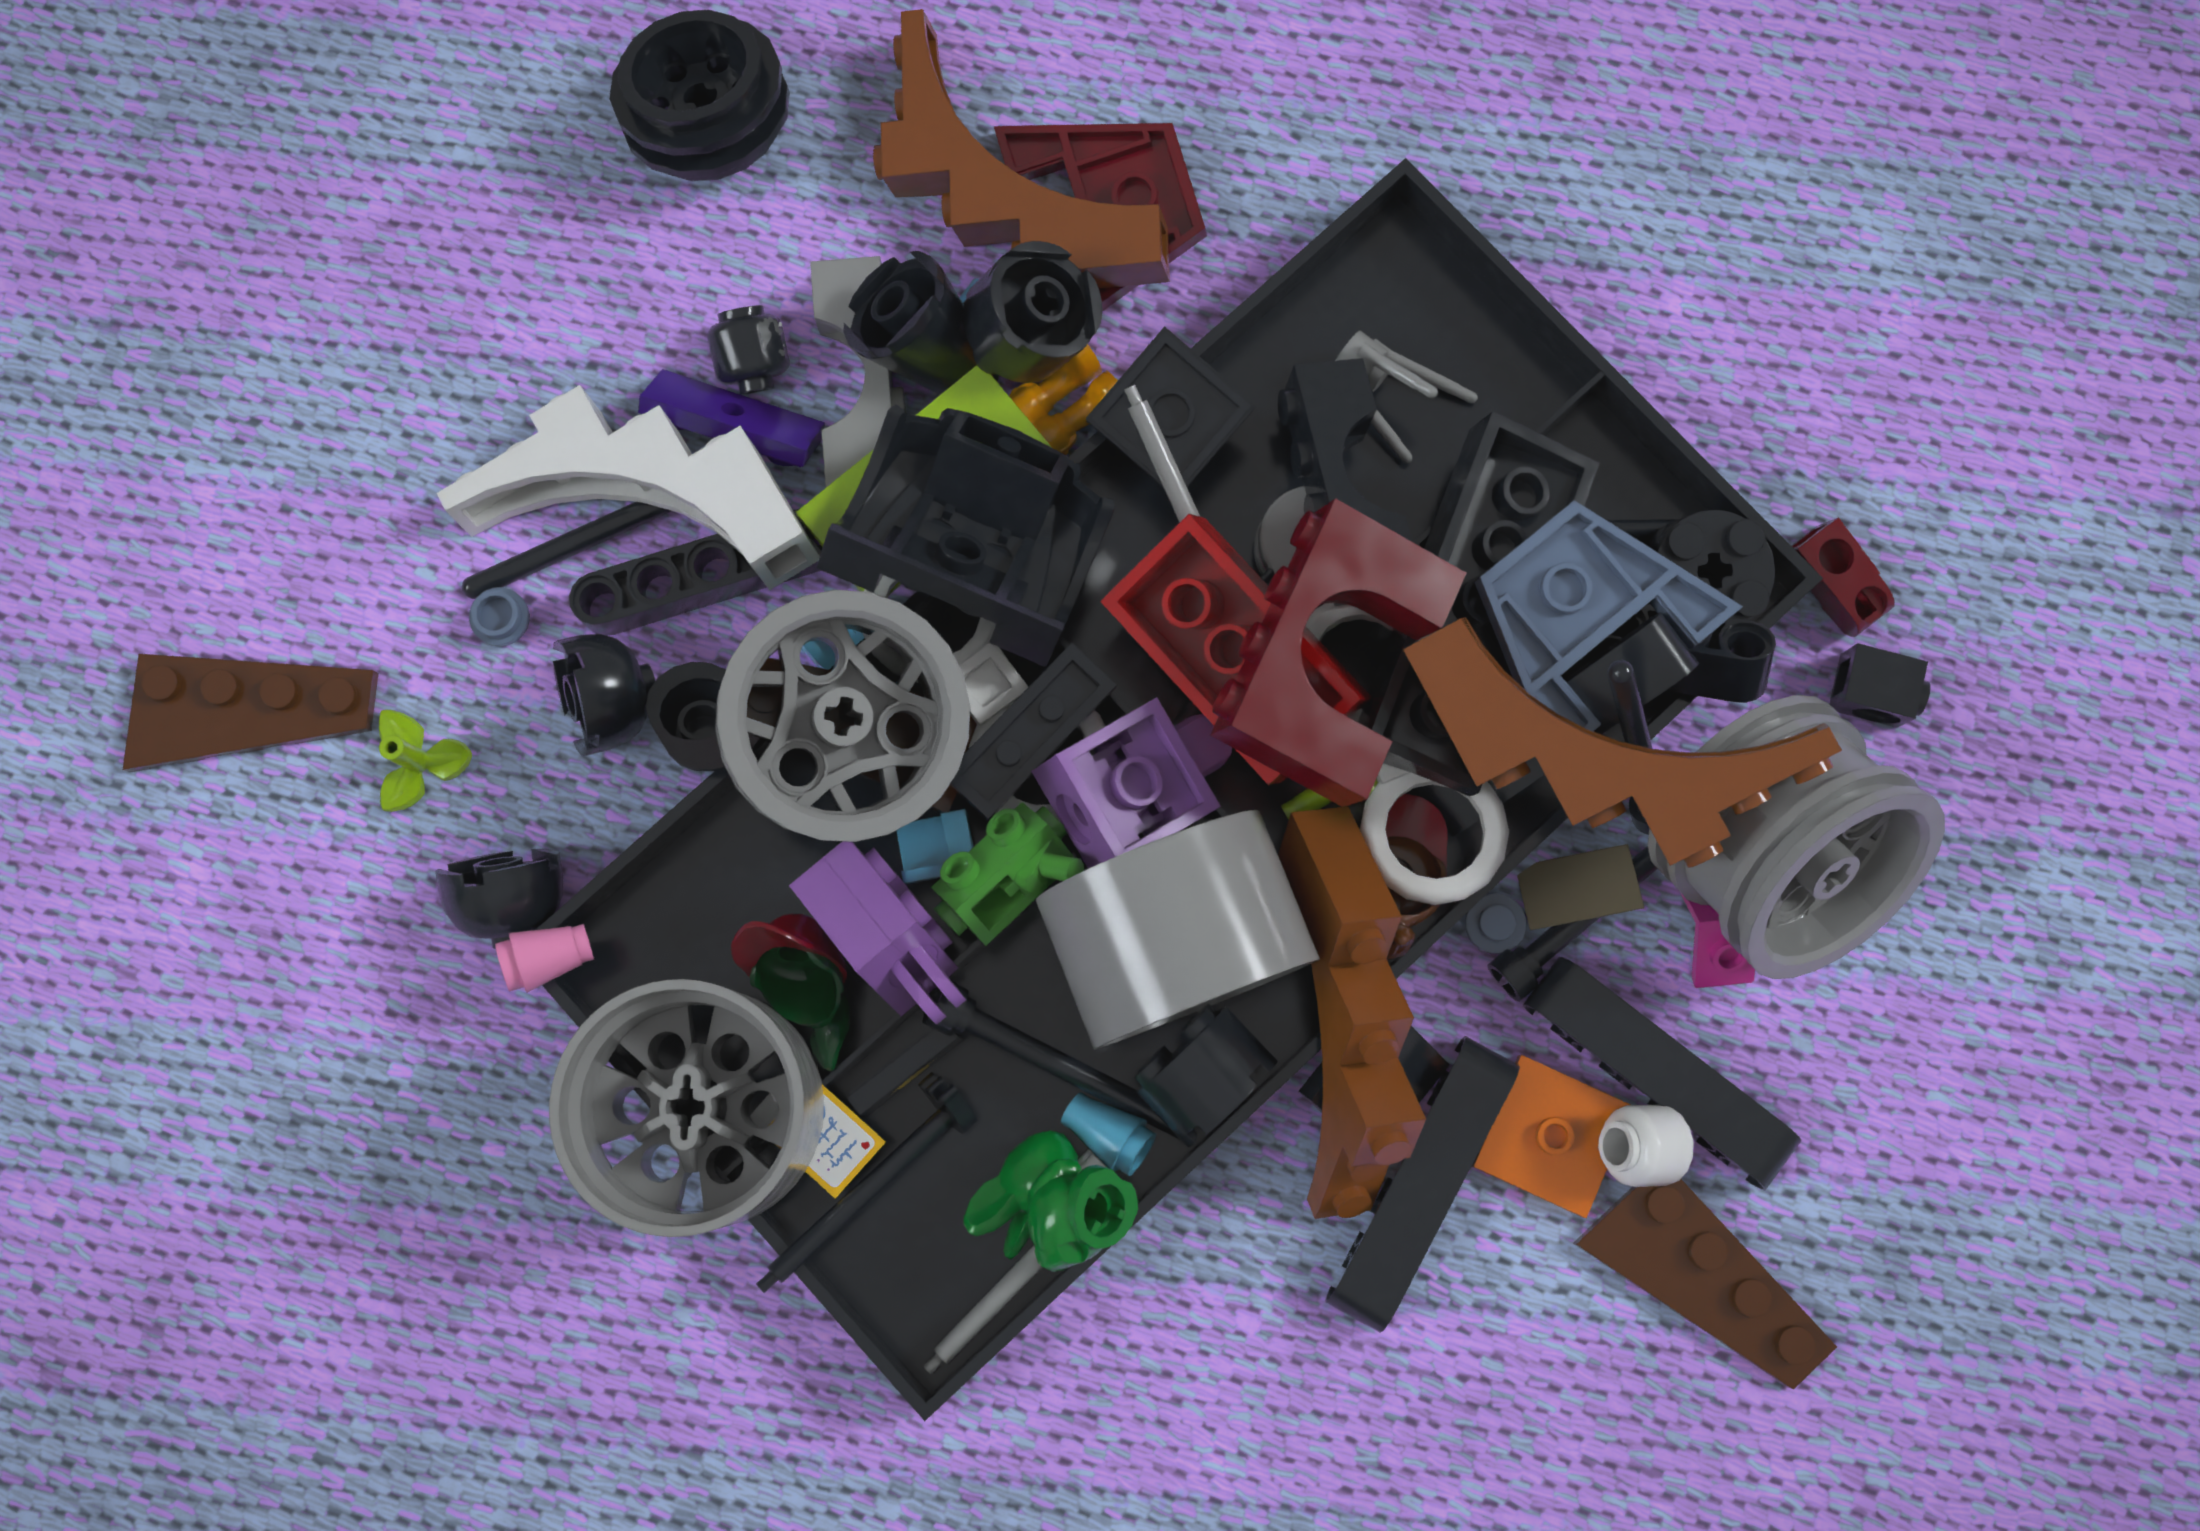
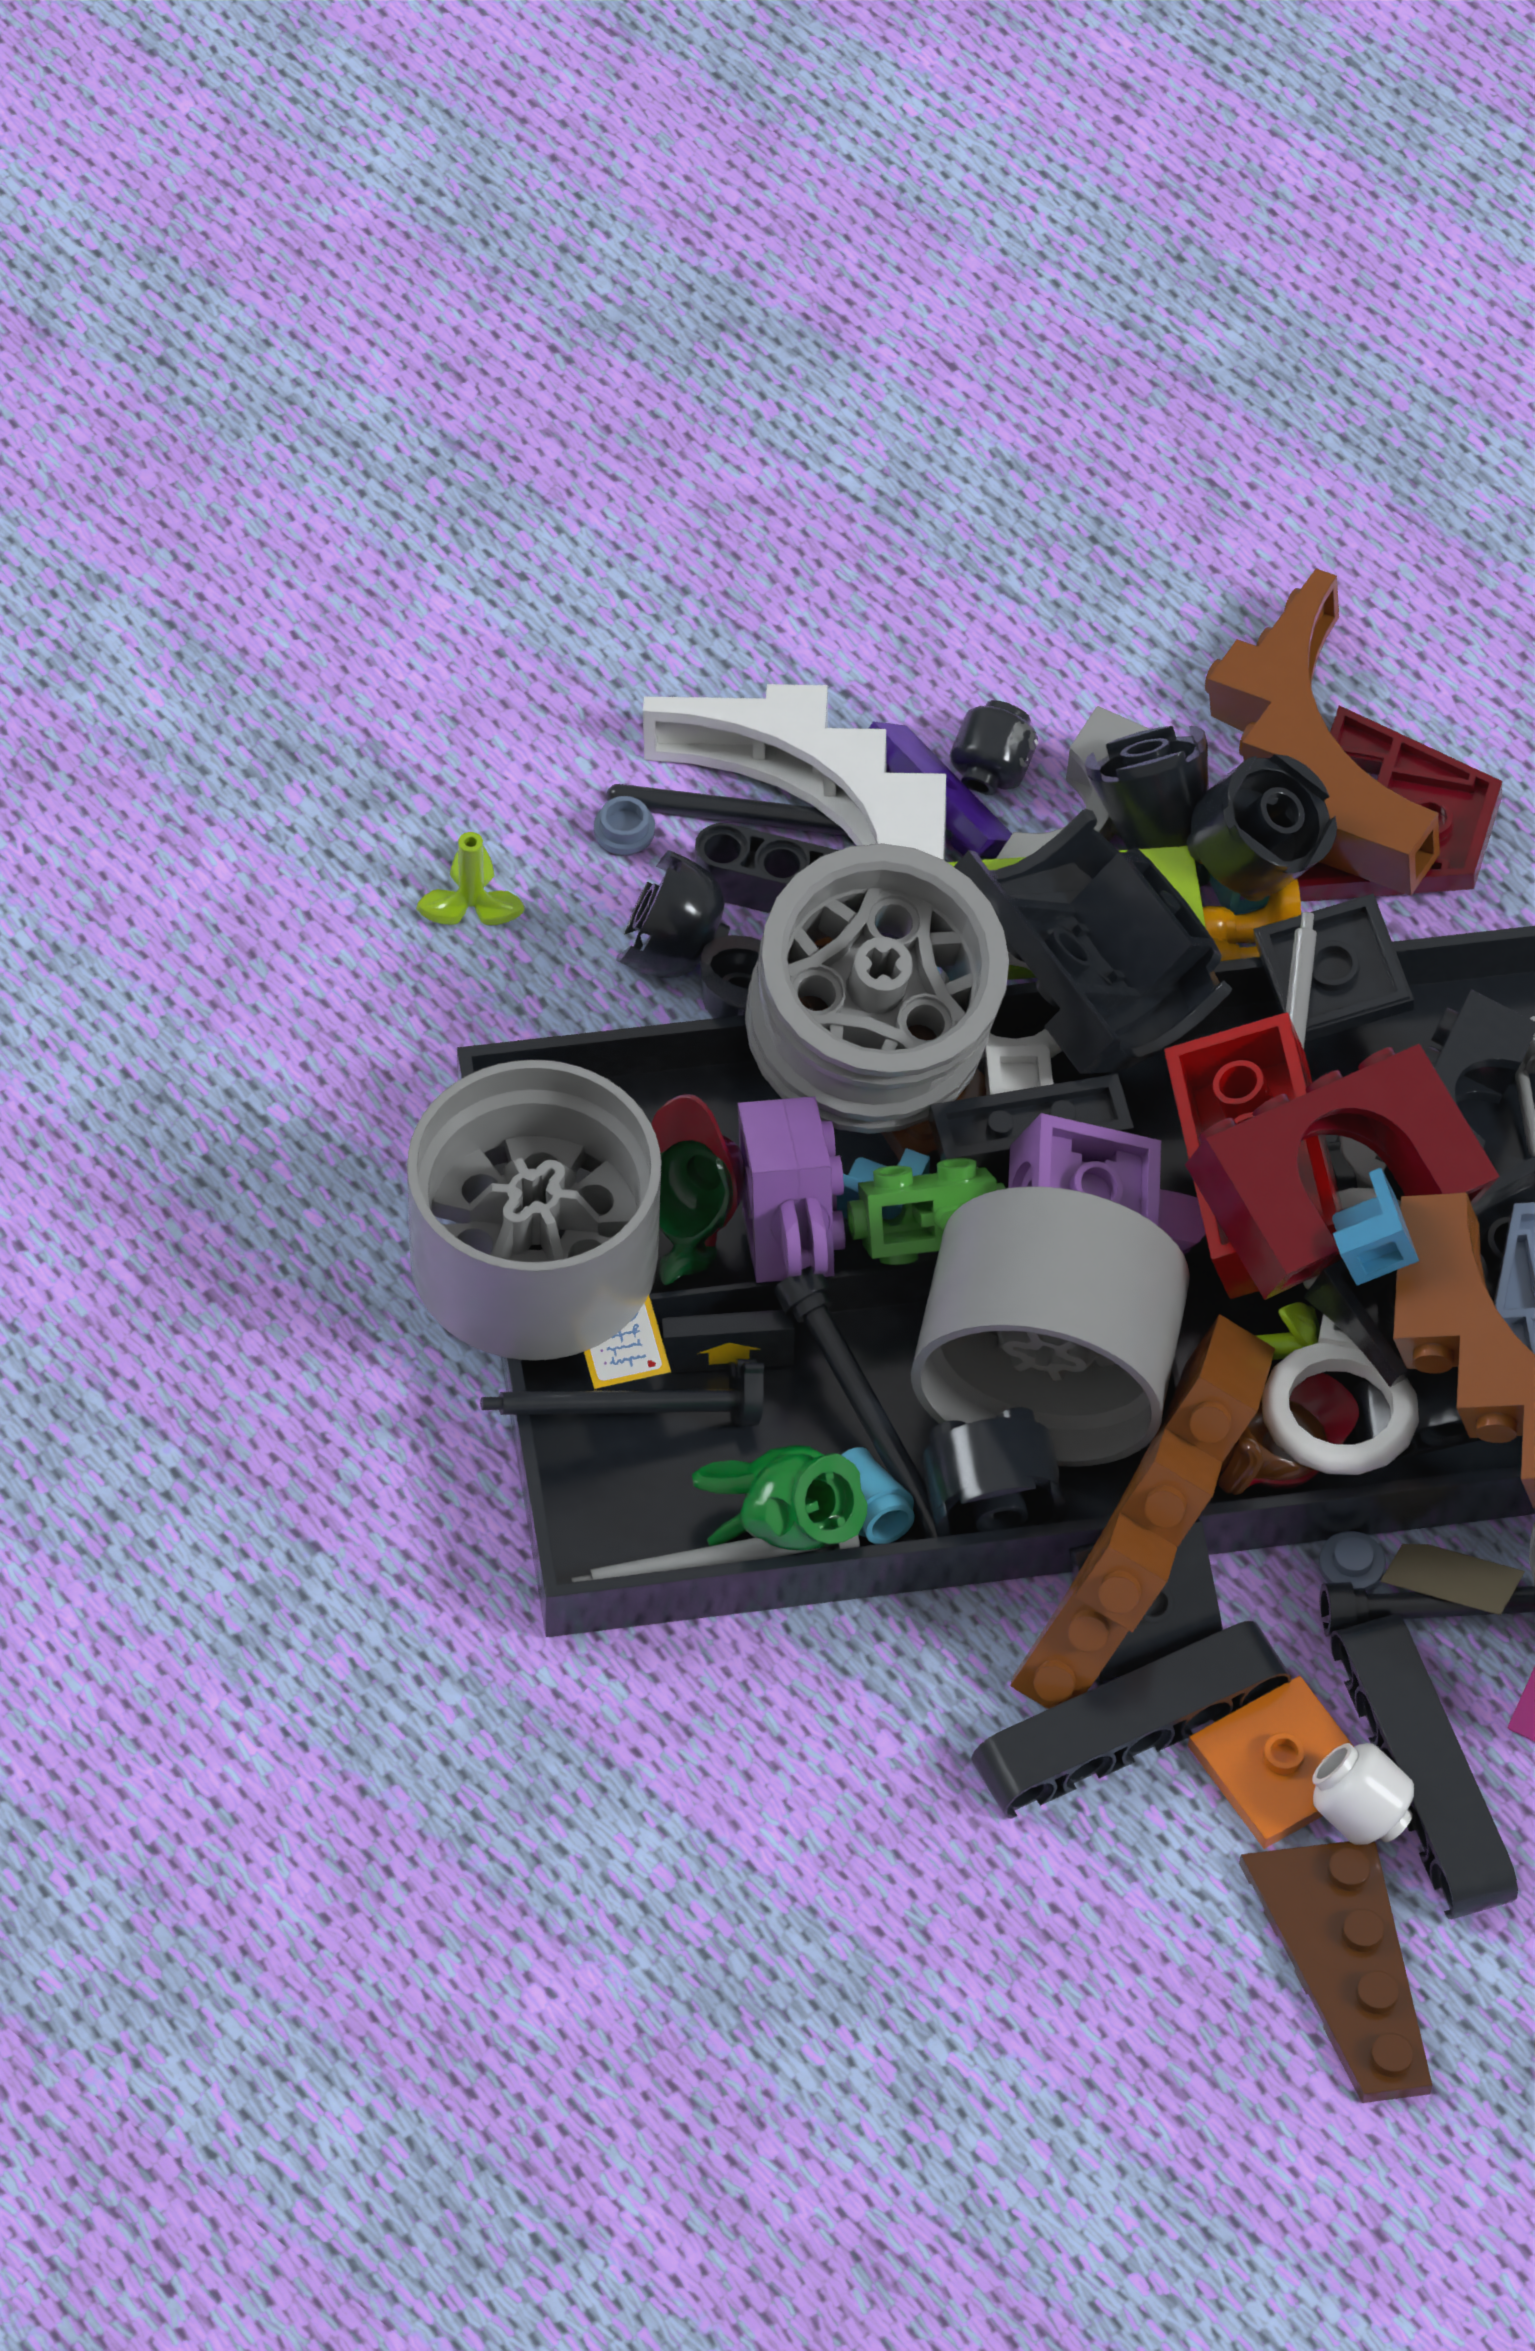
camera: 30 degrees right, 25 degrees down
(224, 707) = (336, 759): reddish brown wing -> none
(501, 893) = (474, 1007): black cylinder -> none
(542, 955) = (477, 1046): bright pink cone -> none
(719, 90) = (1091, 535): black wheel -> none
(1404, 703) = (1374, 1234): none -> dark azure panel

